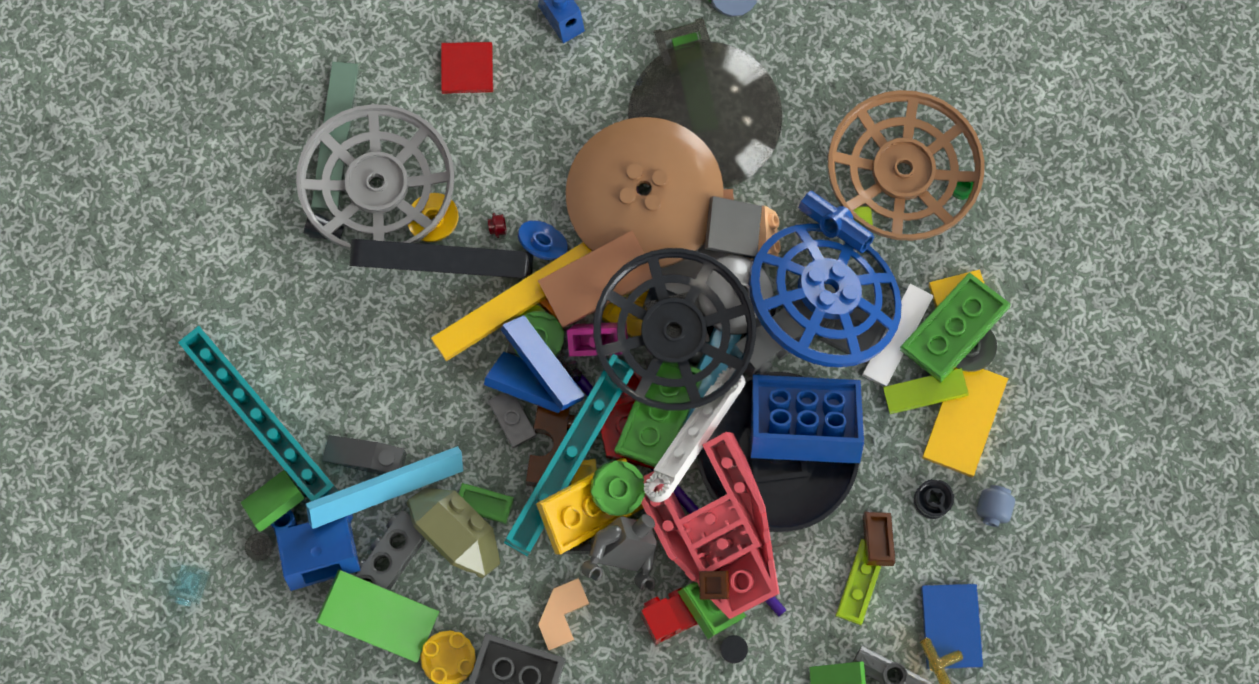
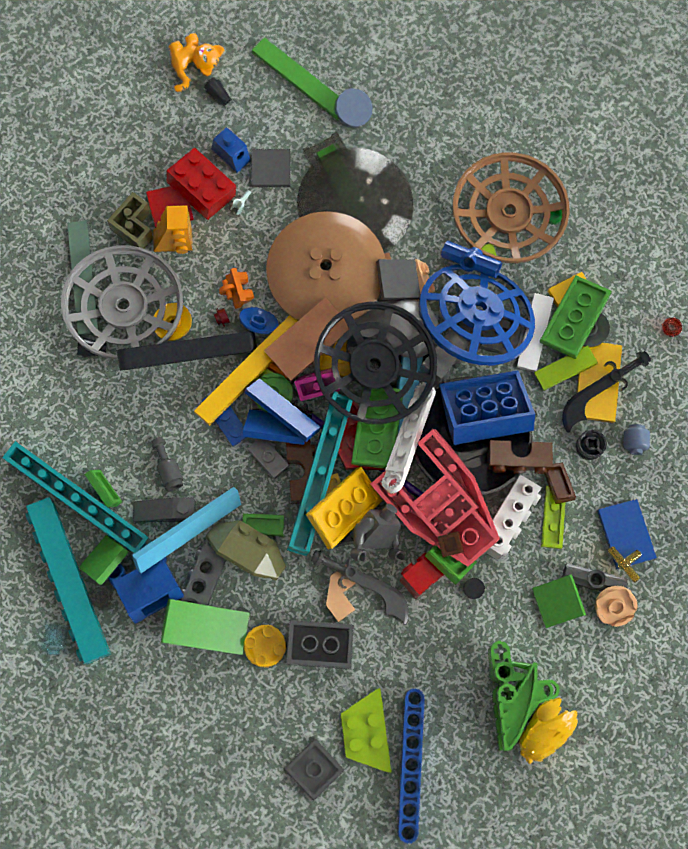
camera: 20 degrees left, 0 degrees up
(223, 517) = (68, 581): none -> teal brick
(294, 410) = (103, 488): none -> bright green tile
(381, 403) = (167, 468): none -> dark grey piece
(408, 76) = (128, 221): none -> olive brick
(463, 102) = (173, 231): none -> light orange wedge
(474, 367) = (230, 426): none -> blue plate
(512, 47) = (201, 183): none -> red brick
(520, 192) = (233, 288): none -> orange hips
(556, 83) = (239, 203): none -> light aqua hand
(607, 46) = (270, 167): none -> dark grey tile
(617, 488) = (362, 489): bright green tile -> none
(627, 639) = (394, 600): none -> dark grey sword
(806, 564) = (511, 514): none -> white brick
(809, 490) = (502, 458): none -> reddish brown arch
(924, 446) = (575, 407): none -> black sword
(1087, 363) = (676, 323): none -> clear red plate

